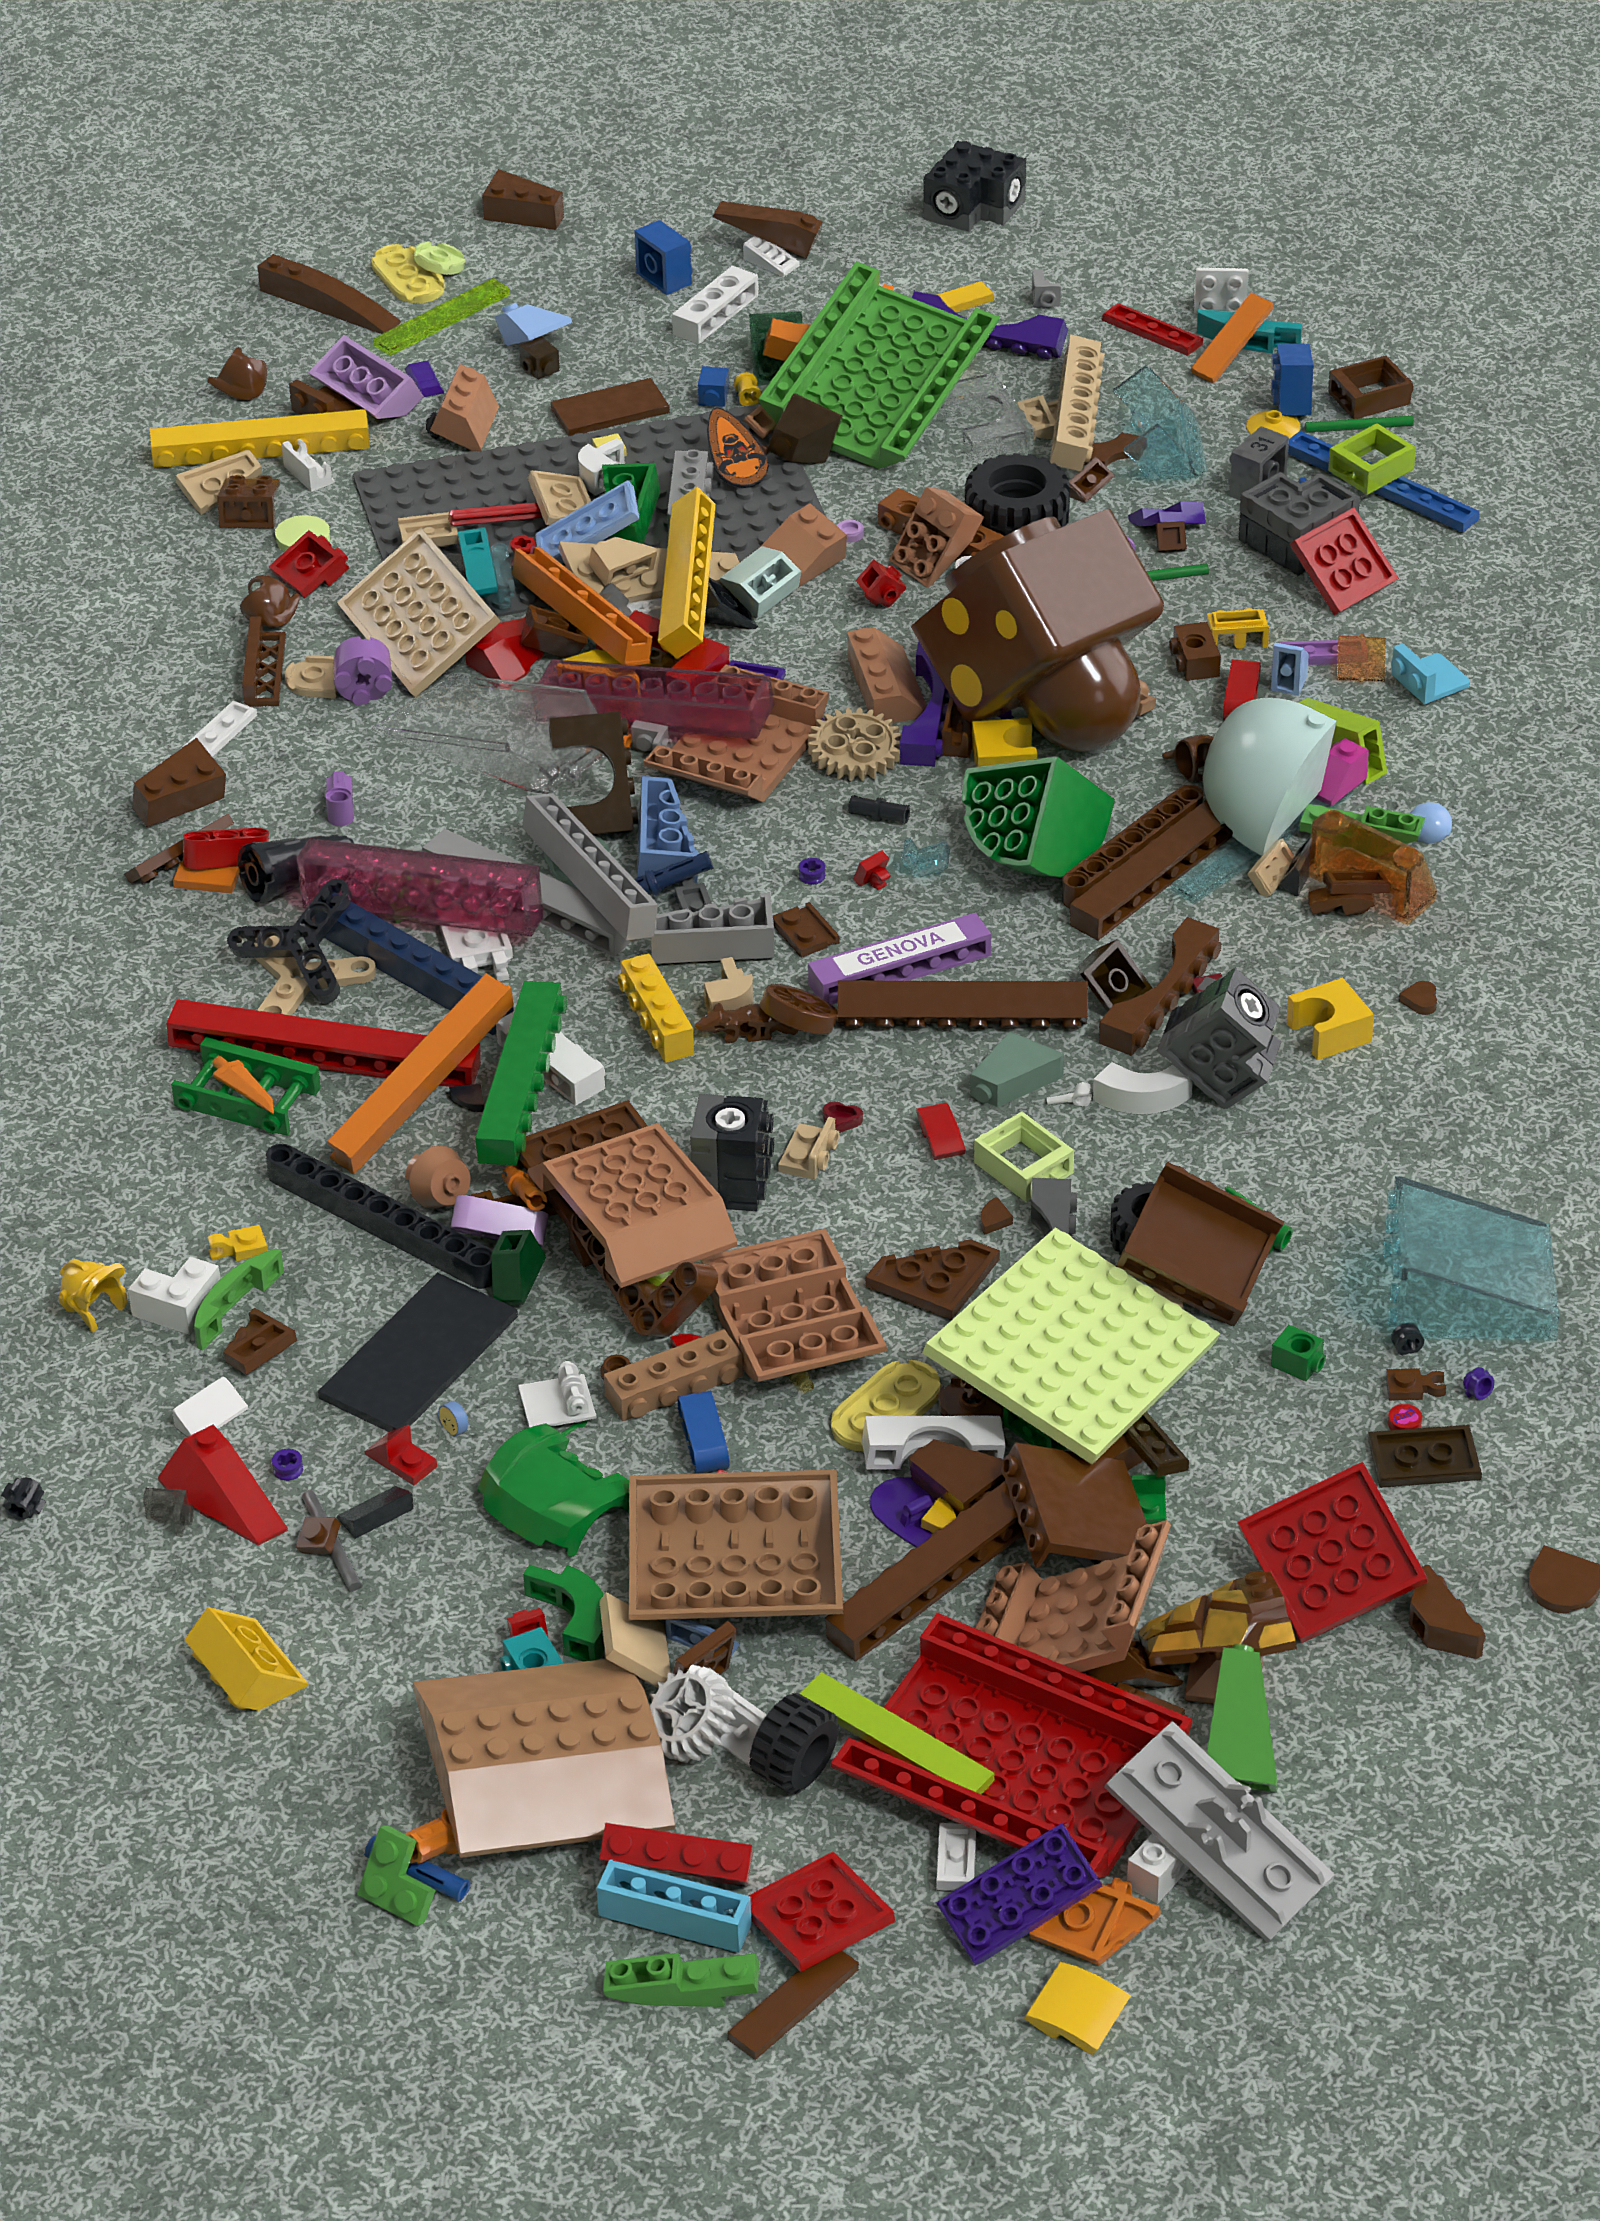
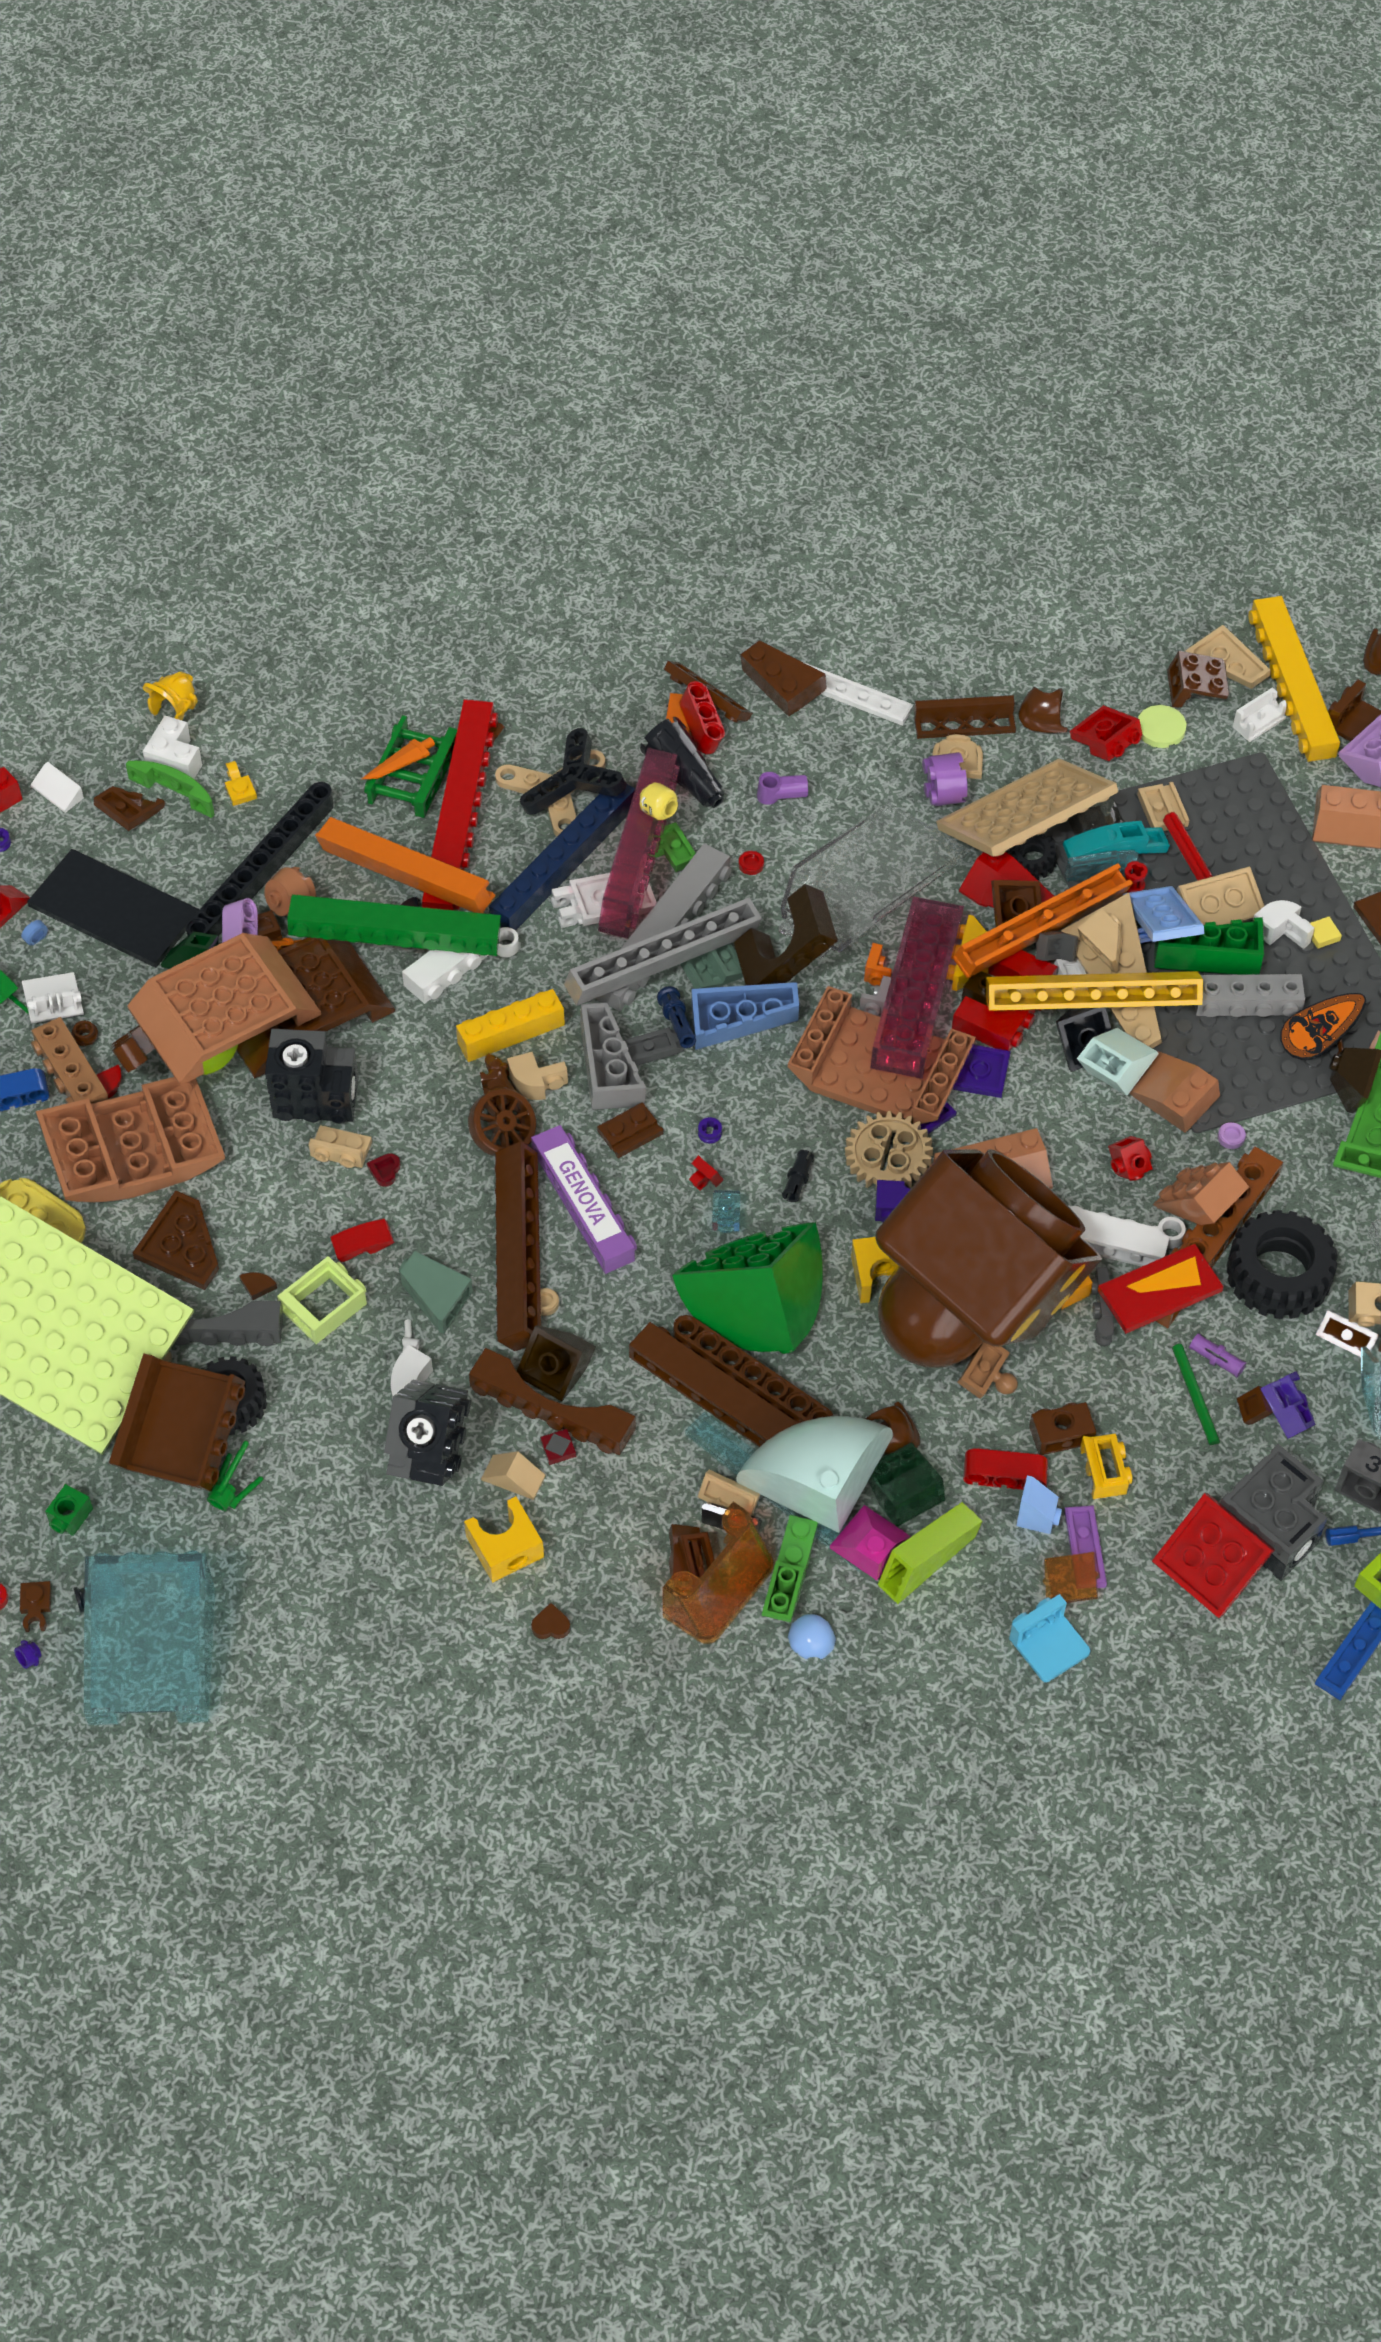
camera: 85 degrees right, 15 degrees up
(394, 836) = (658, 801): none -> light yellow head
(437, 825) = (751, 862): none -> red tile

